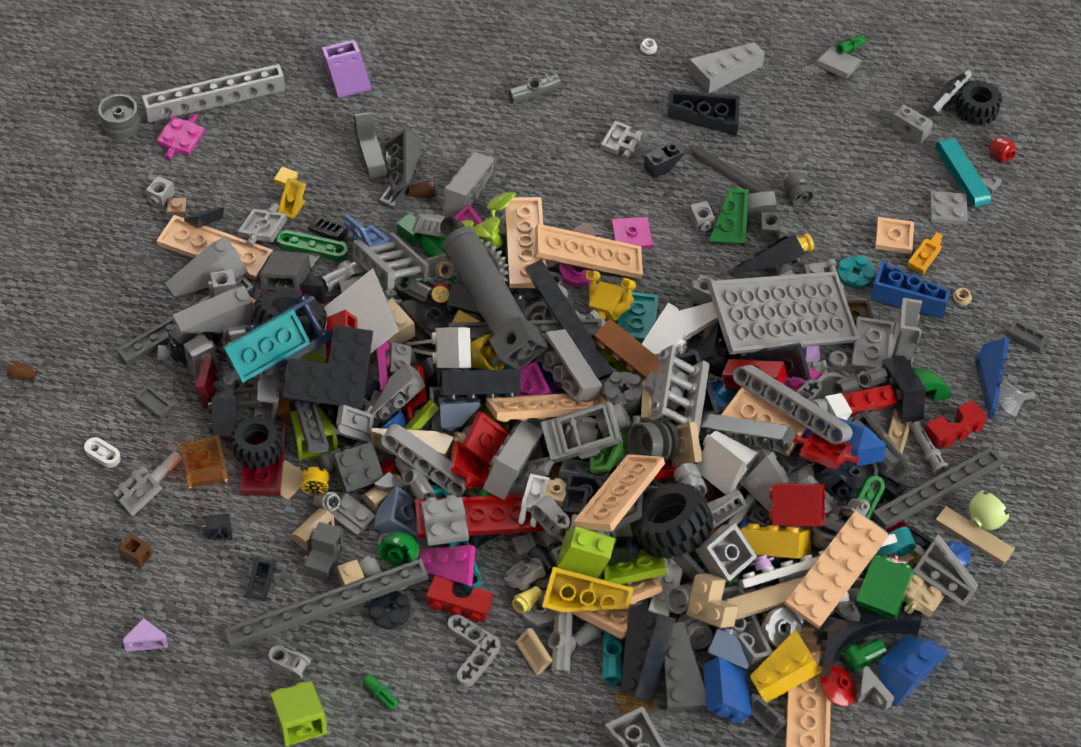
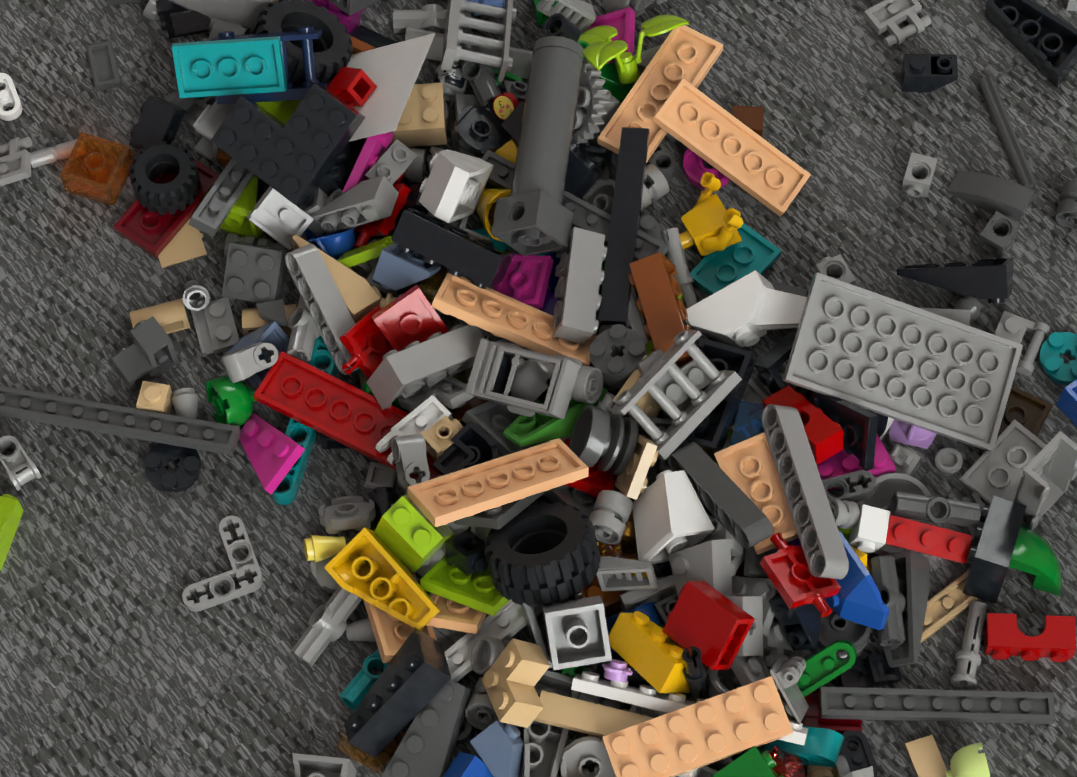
camera: 40 degrees right, 10 degrees up
(195, 352) = (180, 29): light grey brick -> none
(205, 381) = (160, 75): dark red plate -> none
(217, 526) = (59, 257): black brick -> none
(266, 564) = (67, 353): black slope -> none
(314, 481) = (200, 262): yellow wheel -> none
(315, 288) = (372, 24): black slope -> none
(380, 692) = (89, 557): green axle -> none
(388, 466) = (291, 293): red tile -> none
(401, 514) = (245, 361): none -> light grey piece
(444, 520) = (291, 396): light grey plate -> none
(474, 607) = (266, 519): red arch -> none
(534, 651) = (290, 614): tan tile -> none
(633, 231) = (817, 150): dark pink plate -> none
(733, 219) = (953, 201): green wing -> none
(806, 242) = (1024, 282): yellow wheel -> none
(810, 534) = (695, 672): none -> black pin

